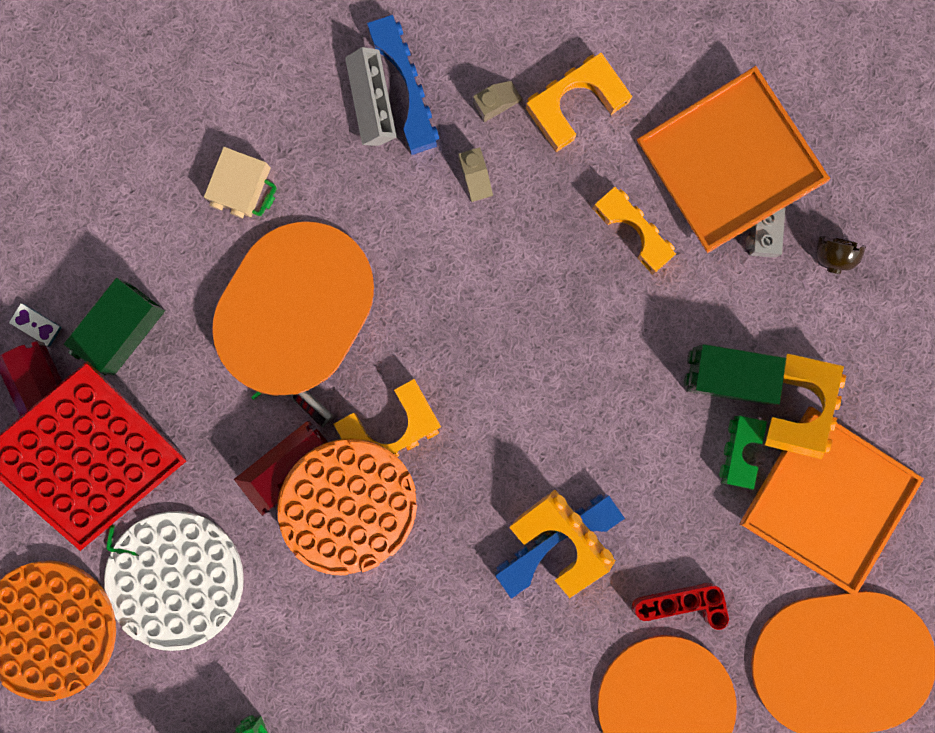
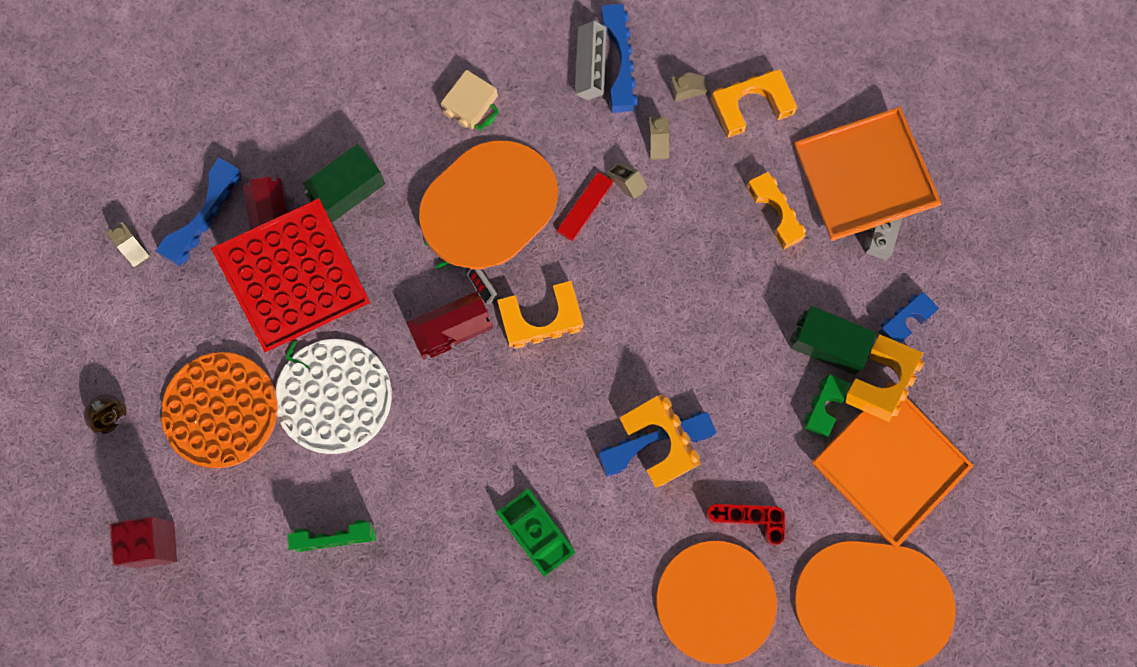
camera: 15 degrees right, 10 degrees down
(35, 324) = (279, 169): tile -> none
(346, 506) = (491, 367): orange tile -> none
(408, 280) = (585, 206): none -> red tile
(445, 682) = (536, 532): none -> green piece
(450, 236) = (627, 179): none -> dark tan slope
(824, 307) = (919, 307): none -> blue arch
(839, 254) = (938, 267): dark brown cylinder -> none

